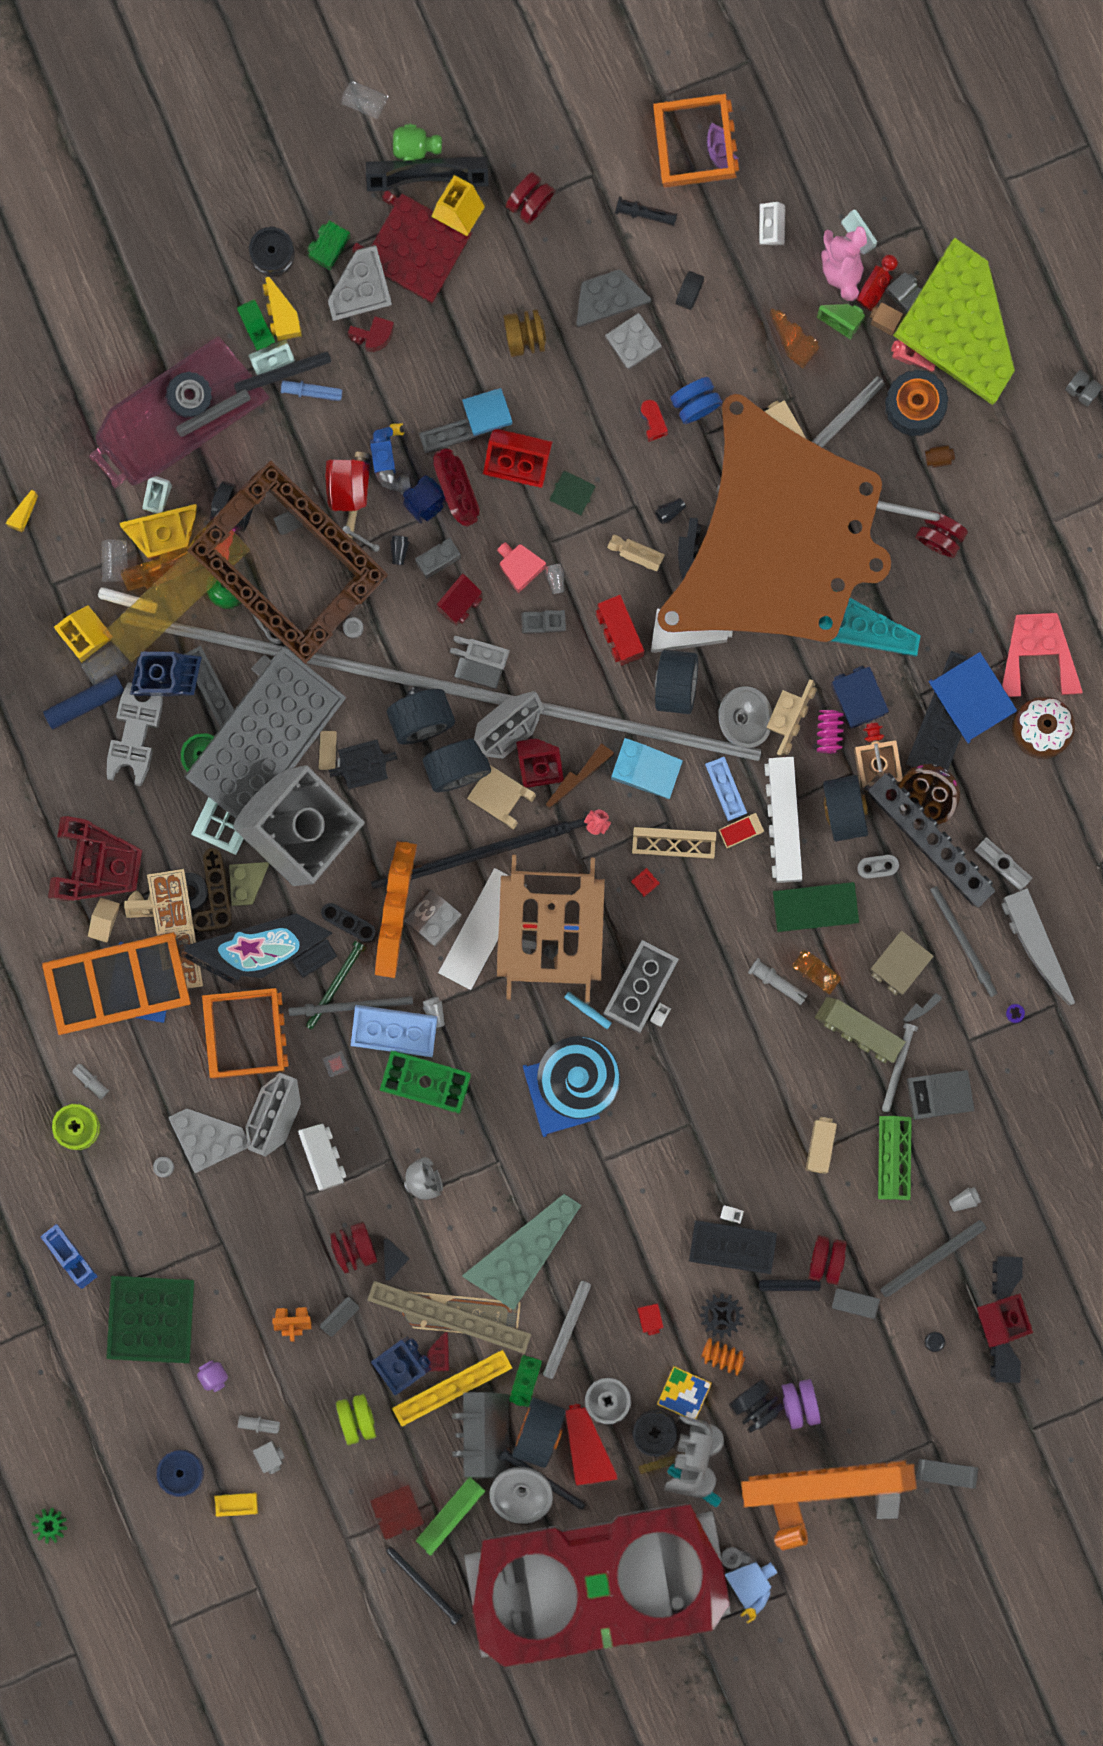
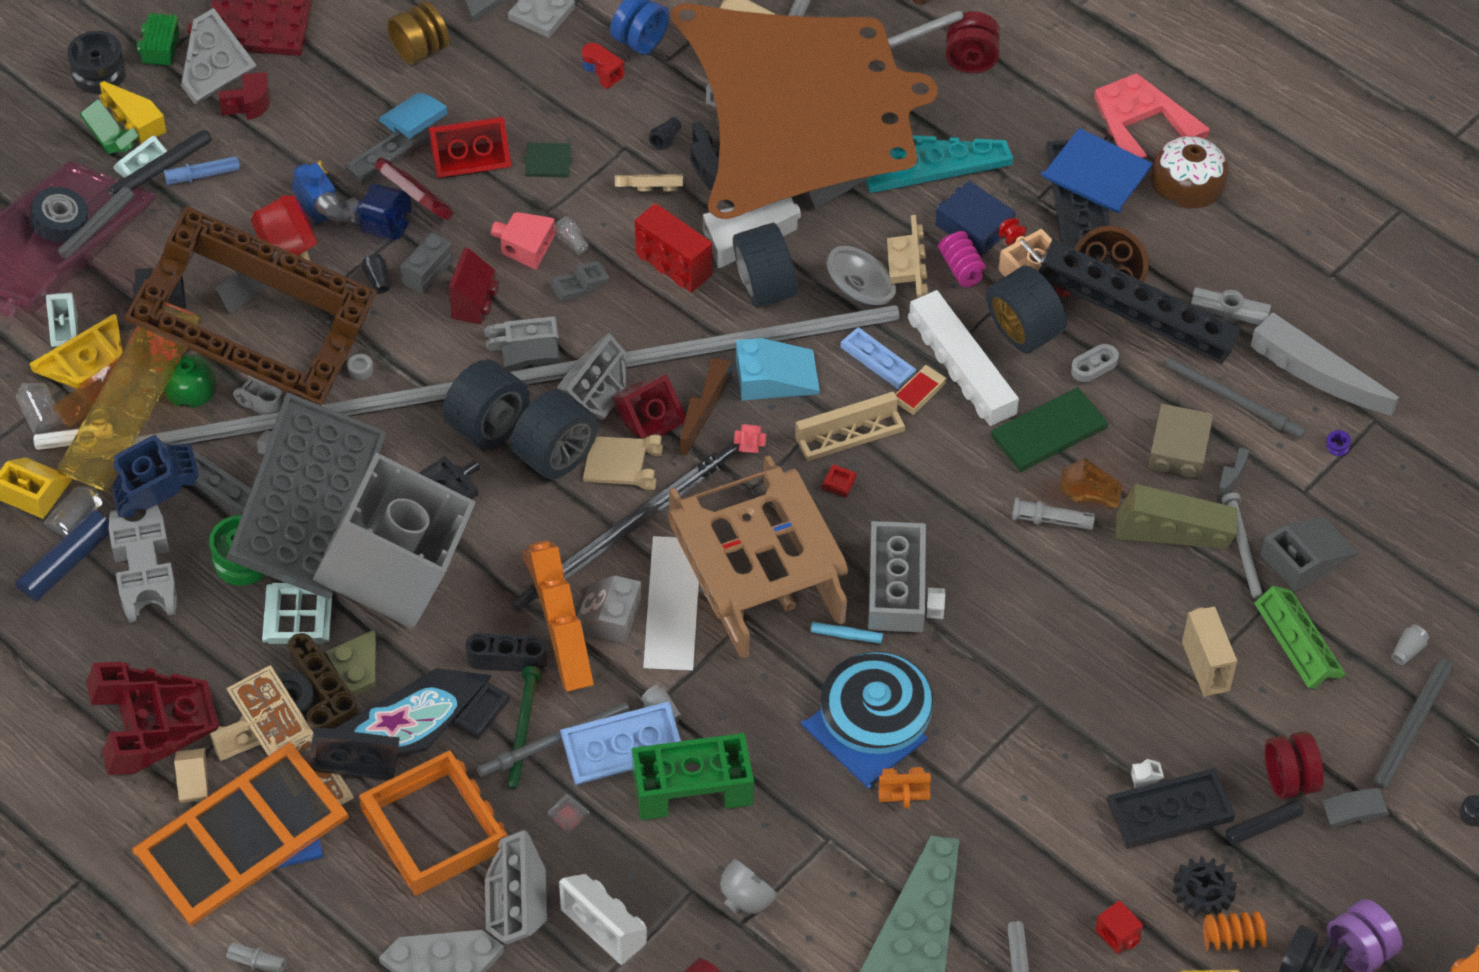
camera: 30 degrees left, 30 degrees down
(562, 1152) = (904, 786): none -> orange hips

